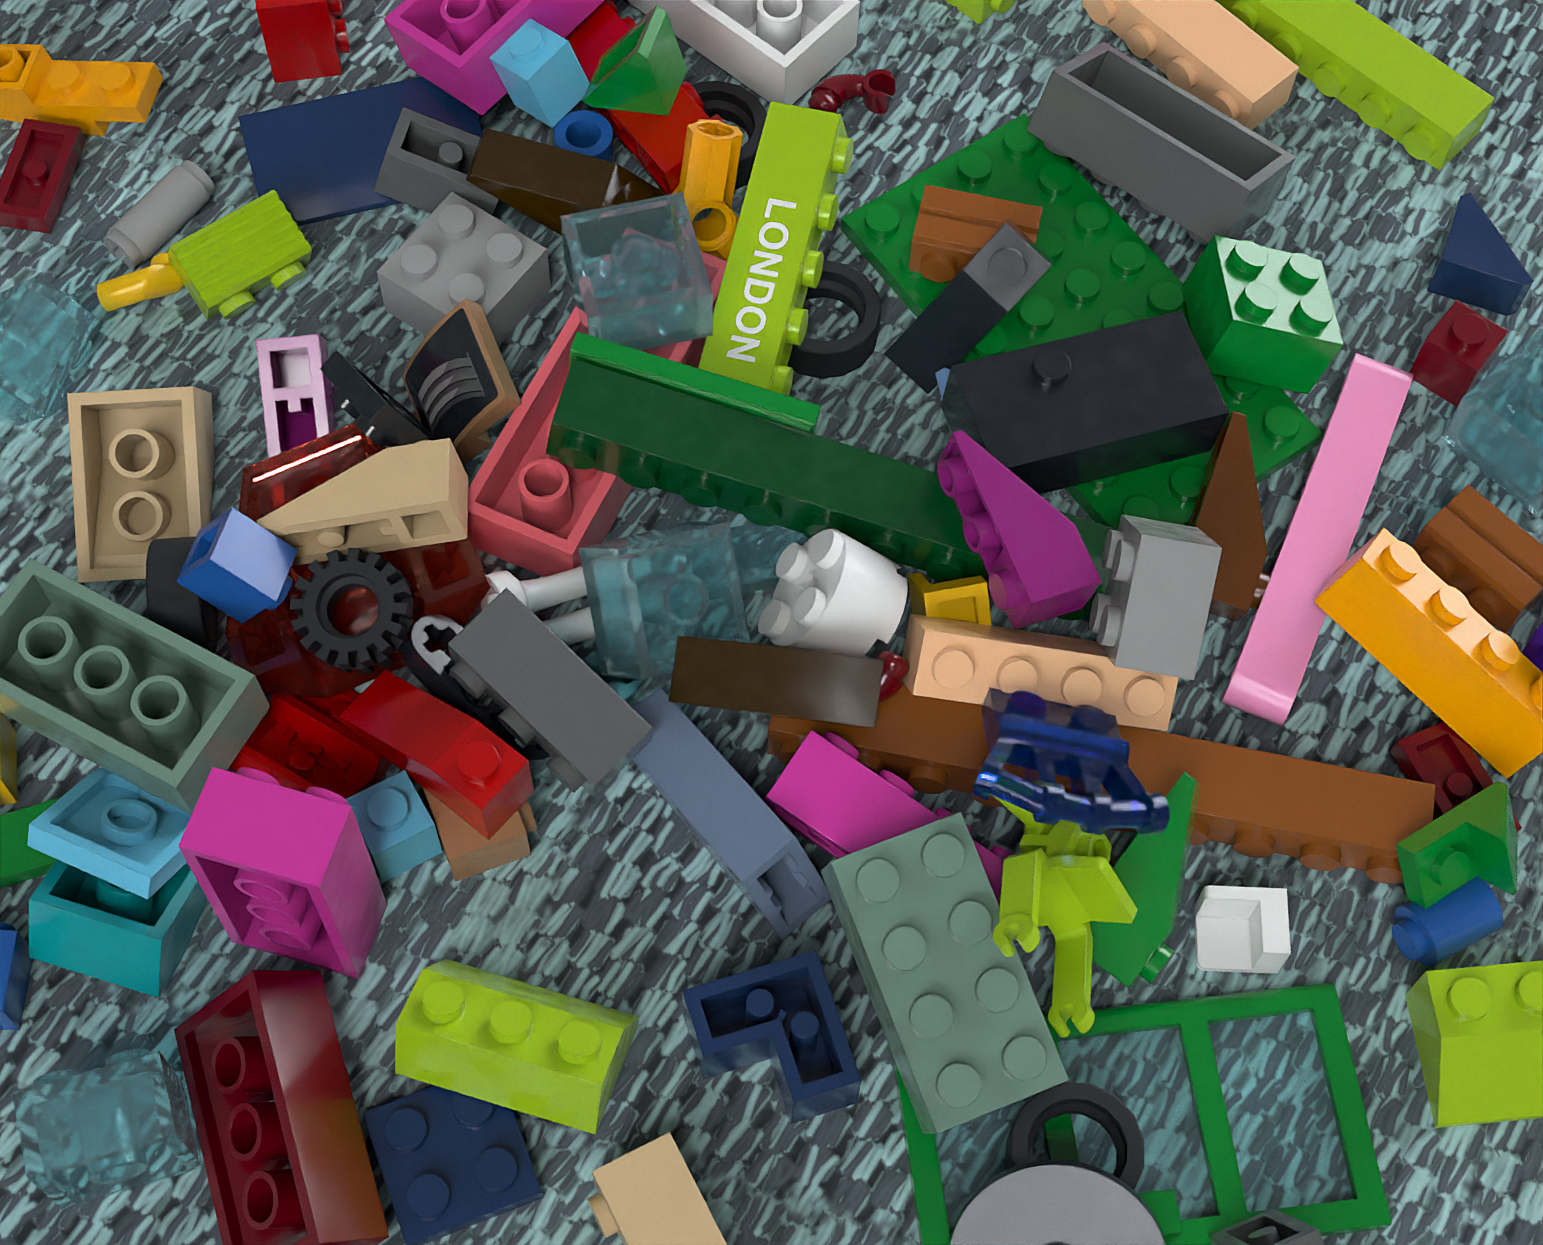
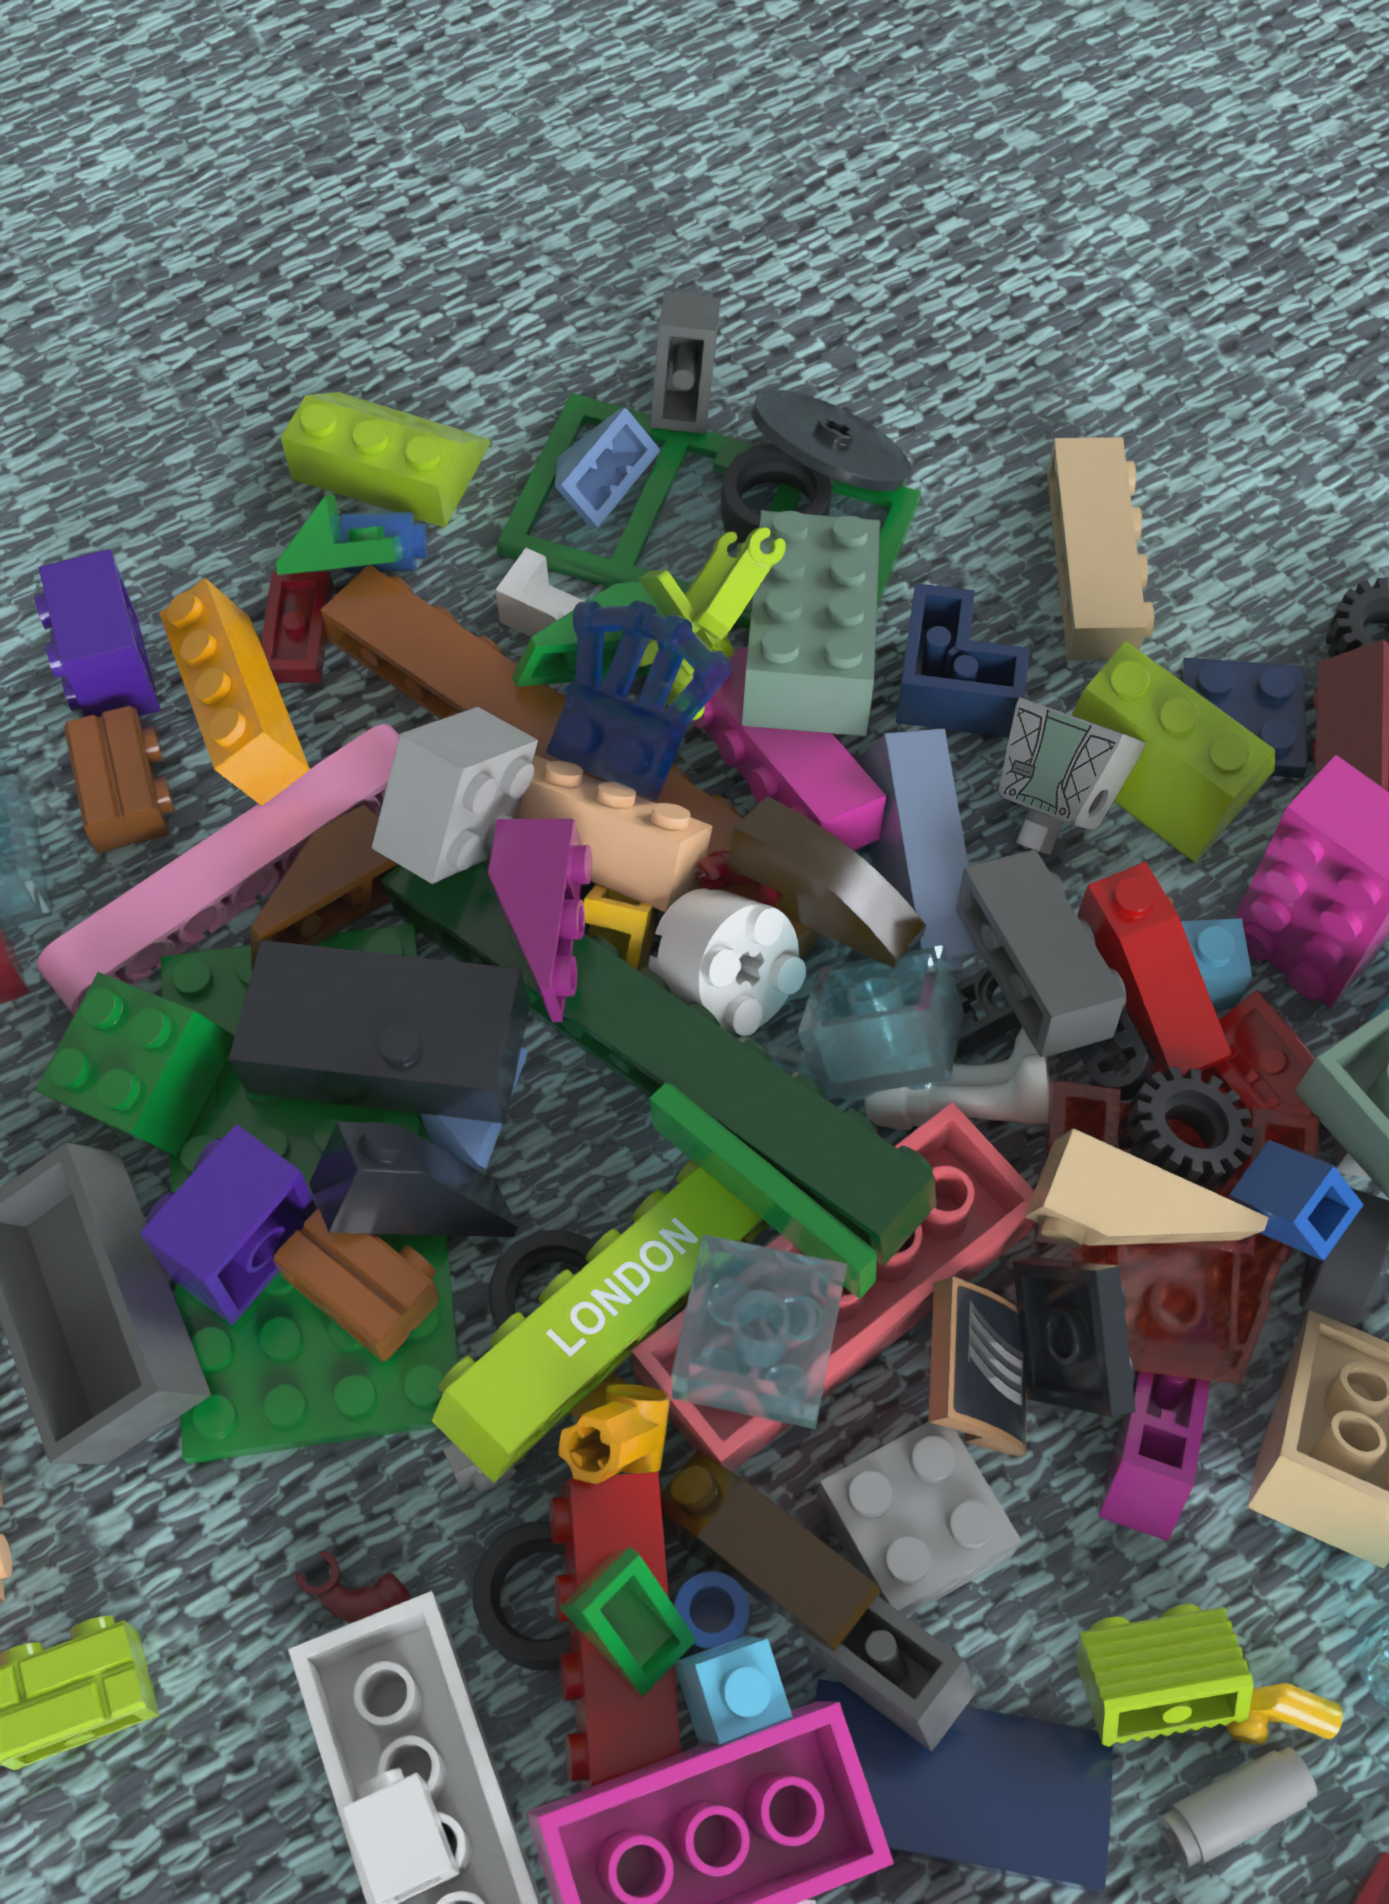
camera: 150 degrees left, 0 degrees up
(615, 958) = (1062, 771): none -> torso
(1092, 210) = (229, 1222): none -> dark purple brick
(1285, 1109) = (604, 466): none -> medium blue slope

